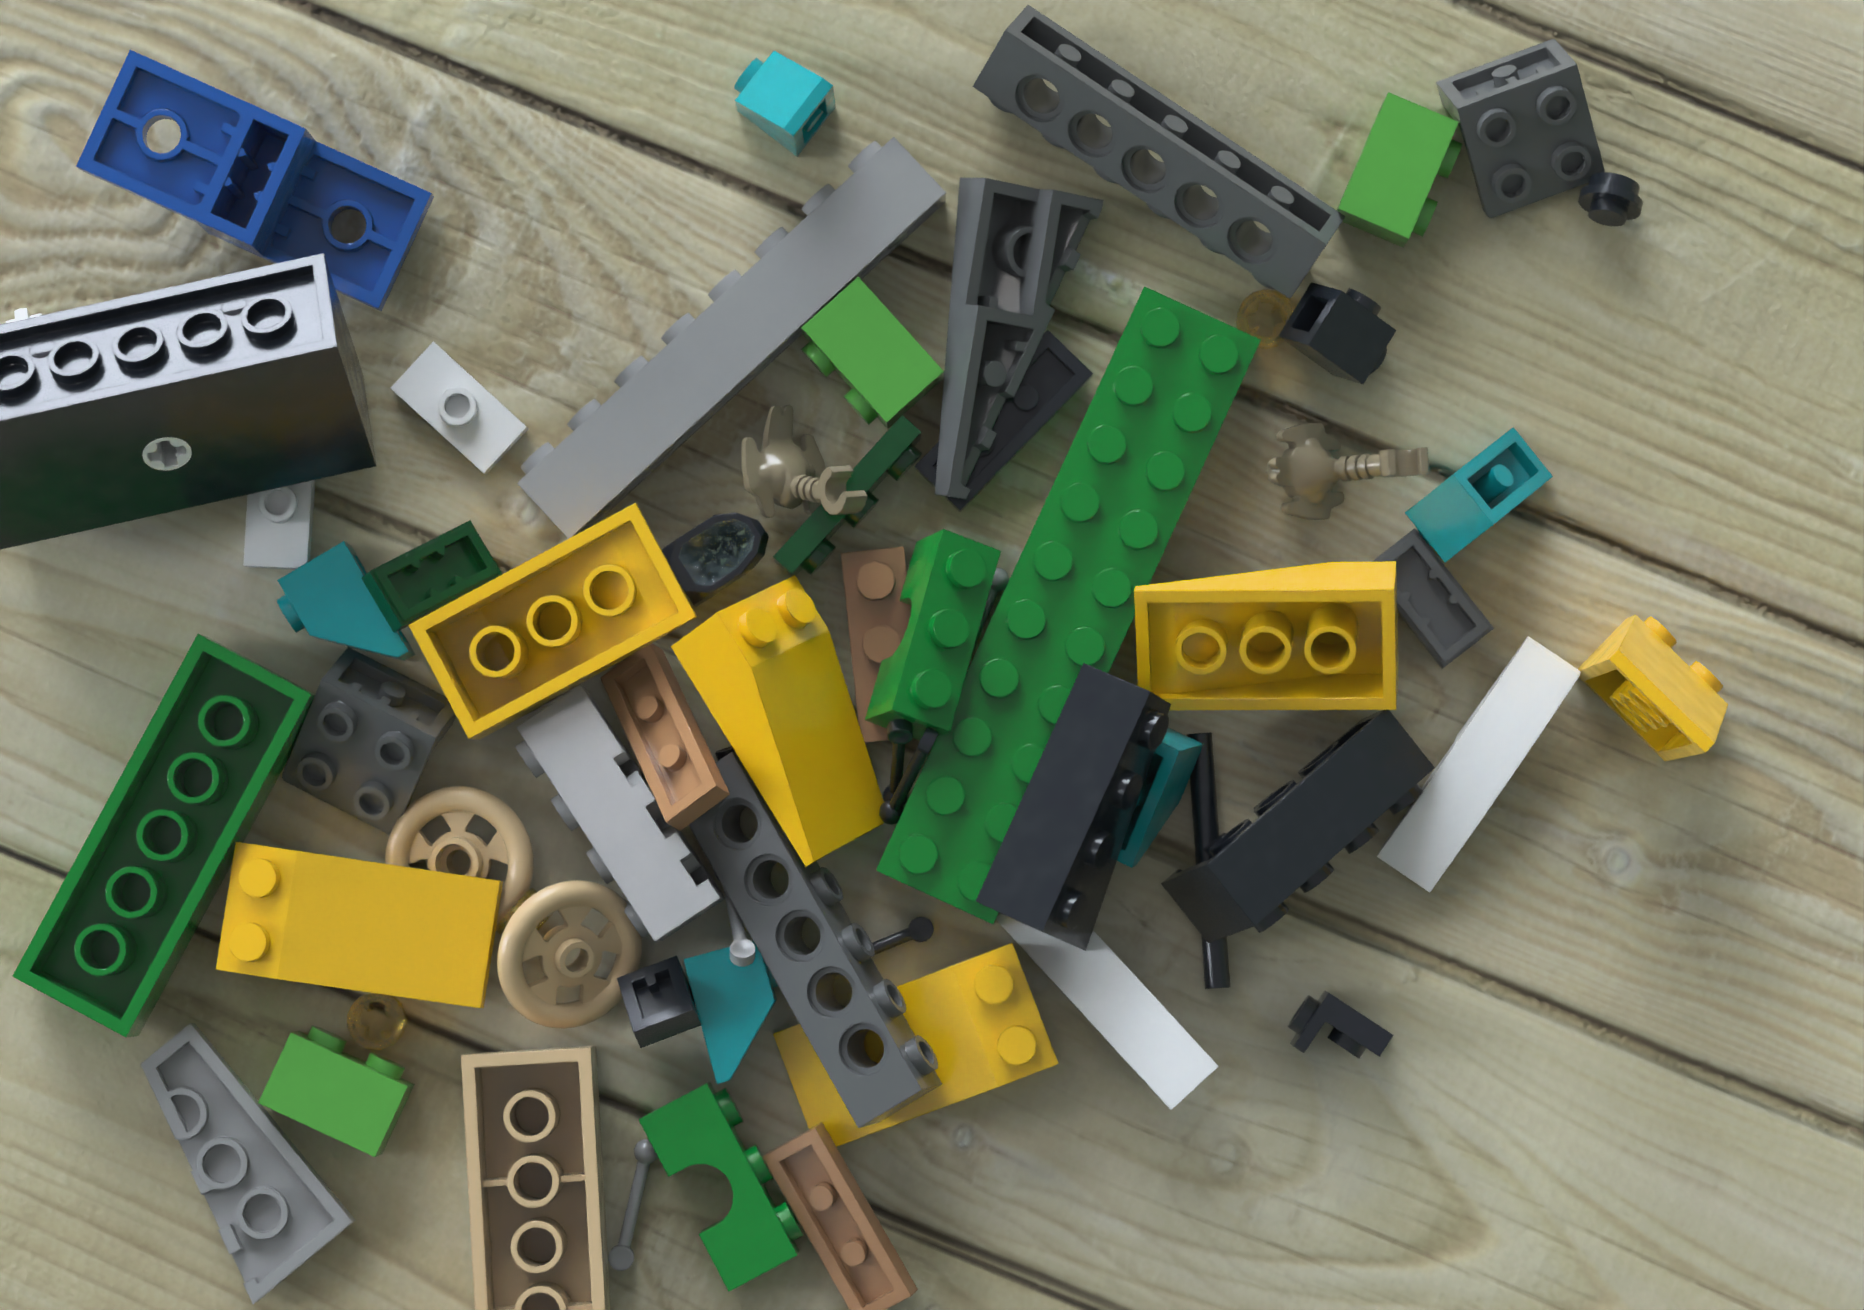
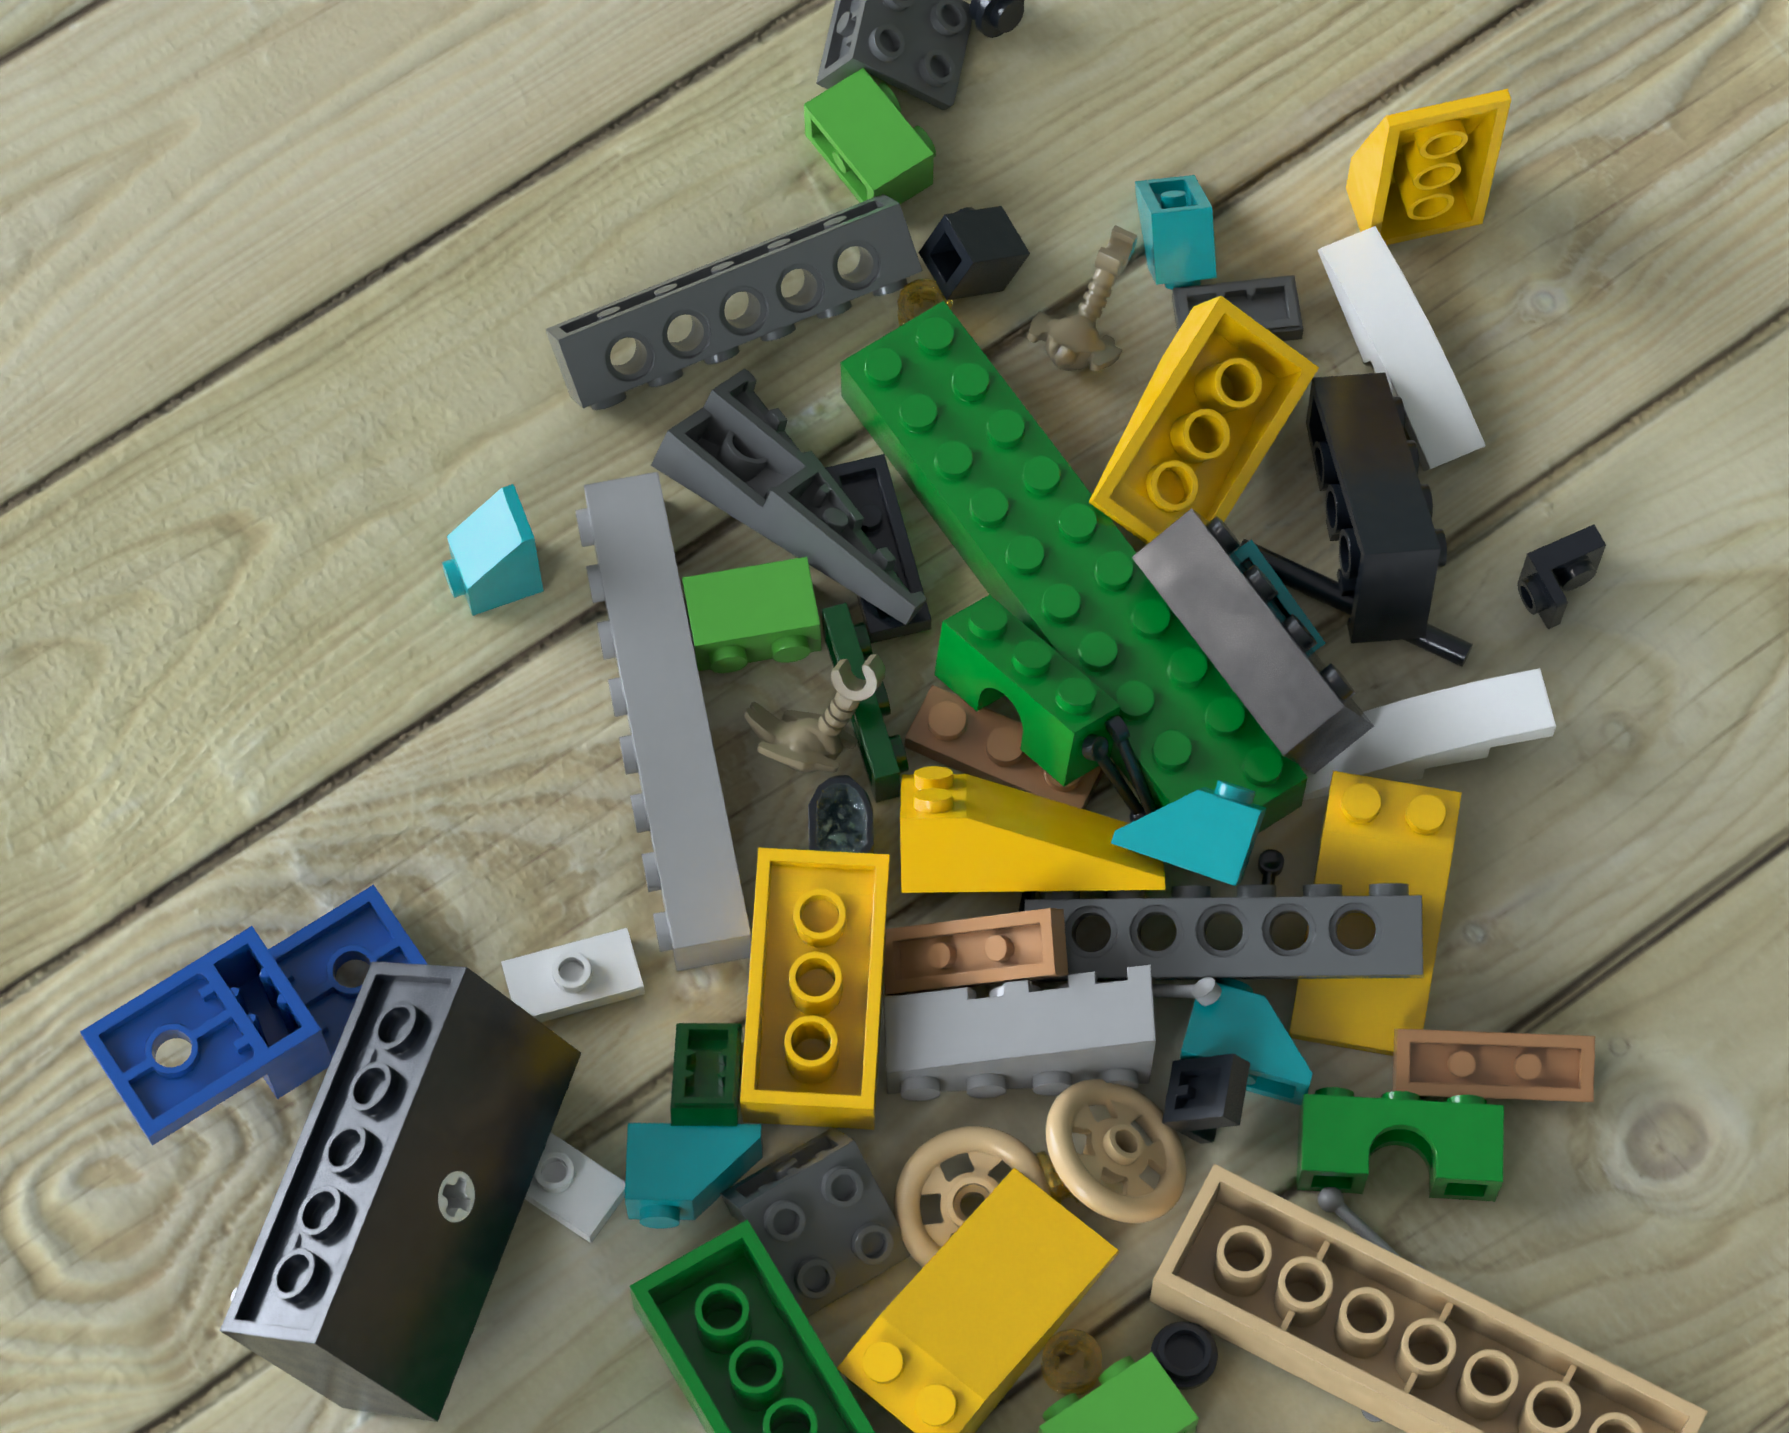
camera: 60 degrees left, 20 degrees down
(436, 1108) = (1186, 1353): none -> black plate
(869, 863) = (1200, 832): none -> teal slope

